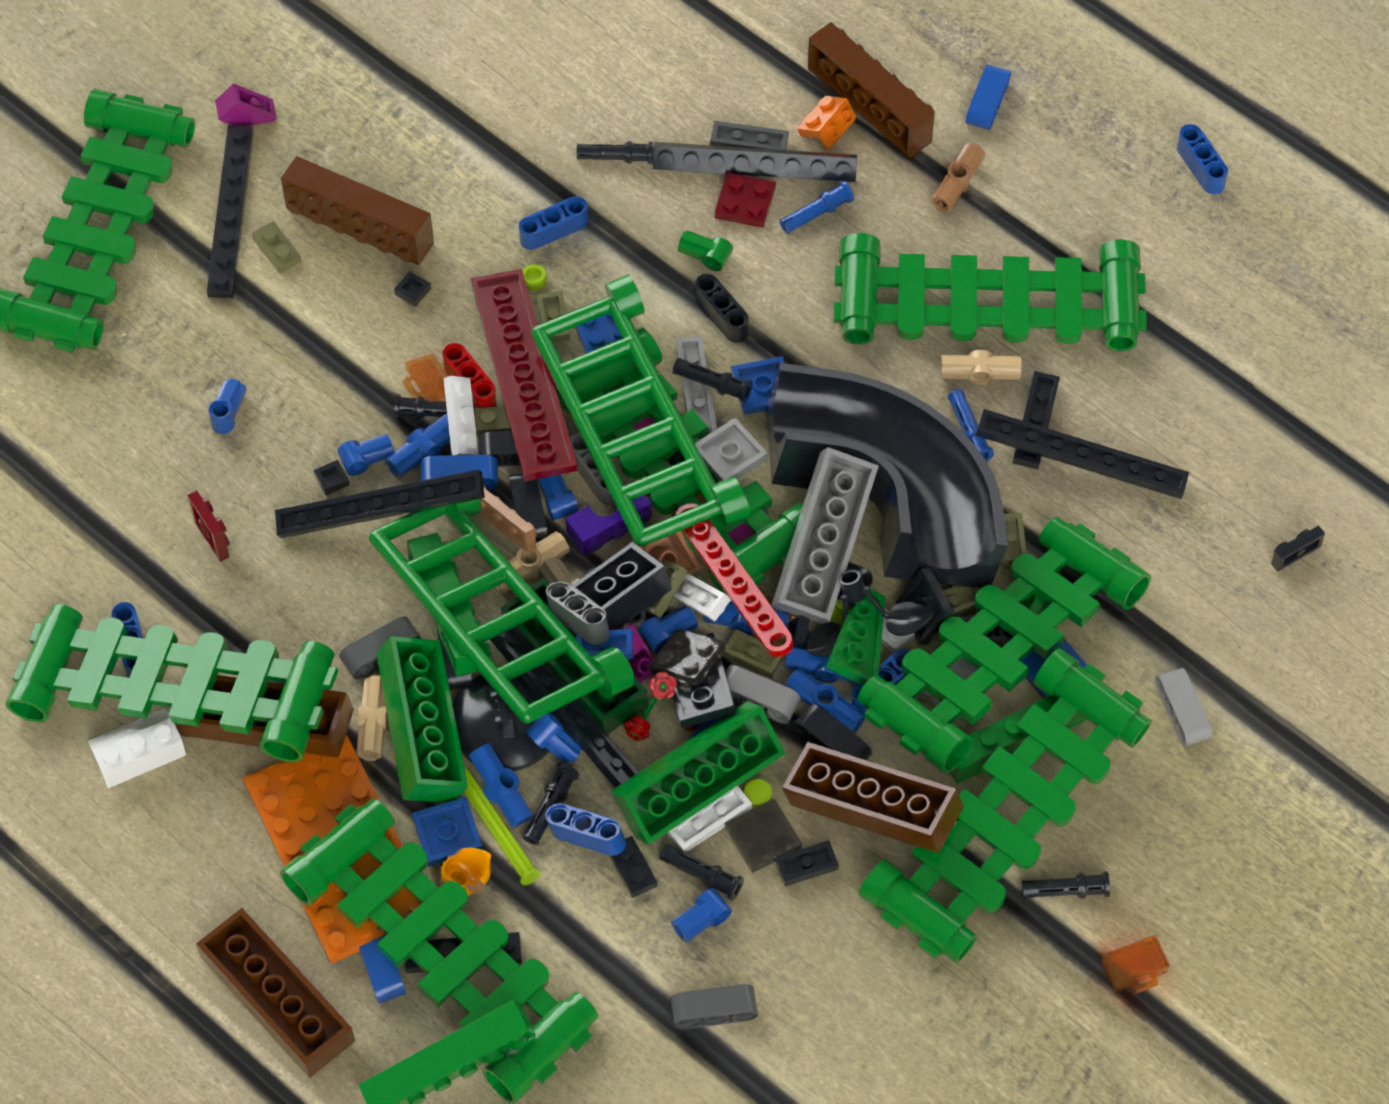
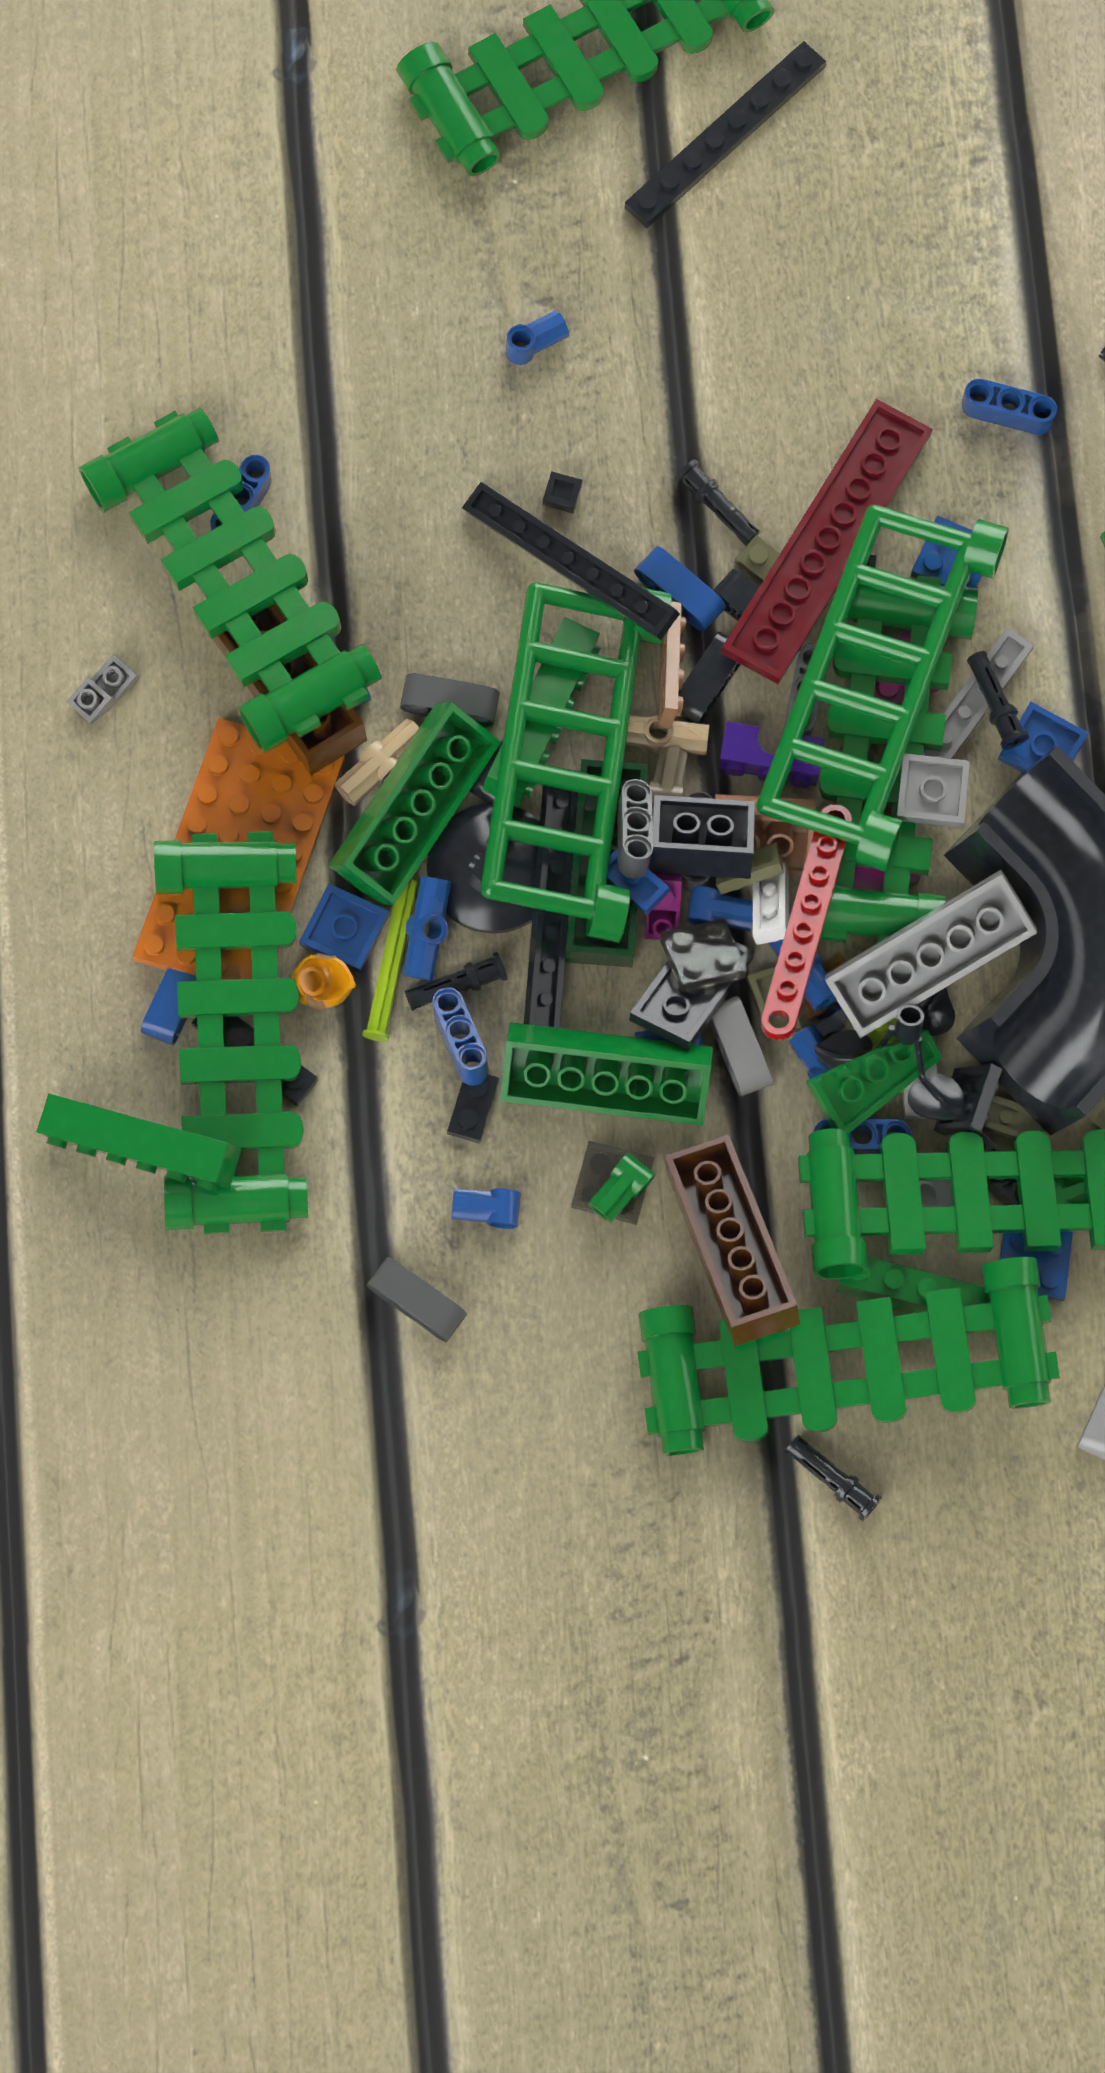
camera: 40 degrees right, 15 degrees up
(137, 748) = (151, 607): white slope -> none
(148, 823) = (102, 691): none -> light grey slope
(208, 525) = (406, 444): dark red plate -> none
(244, 107) = (835, 35): magenta slope -> none
(275, 992) = (60, 945): reddish brown brick -> none
(276, 247) = (732, 209): olive plate -> none
(357, 211) = (833, 238): reddish brown brick -> none
(358, 456) = (606, 492): blue piece -> none
(412, 289) = (814, 362): black plate -> none
(418, 446) = (674, 532): blue piece -> none
(428, 377) = (746, 468): clear orange piece -> none
(460, 415) = (729, 535): white plate -> none
(468, 367) = (783, 486): red beam -> none
(535, 277) = (940, 447): lime tile -> none
(550, 307) = (921, 496): olive plate -> none
(551, 734) = (513, 927): blue piece -> none
(558, 499) = (744, 695): blue piece -> none
(662, 689) = (647, 965): red plant -> none
(710, 820) = (581, 1126): white plate -> none
(712, 875) = (531, 1180): black pin -> none
(721, 308) = (1081, 647): black beam -> none
(758, 792) = (648, 1138): lime tile -> none
(774, 825) = (626, 1181): none -> green piece
(806, 863) = (626, 1244): black plate -> none
(813, 691) = (789, 1087): blue piece -> none
(824, 730) = (763, 1147): black beam -> none
(1135, 965) = (820, 1604): clear orange piece -> none

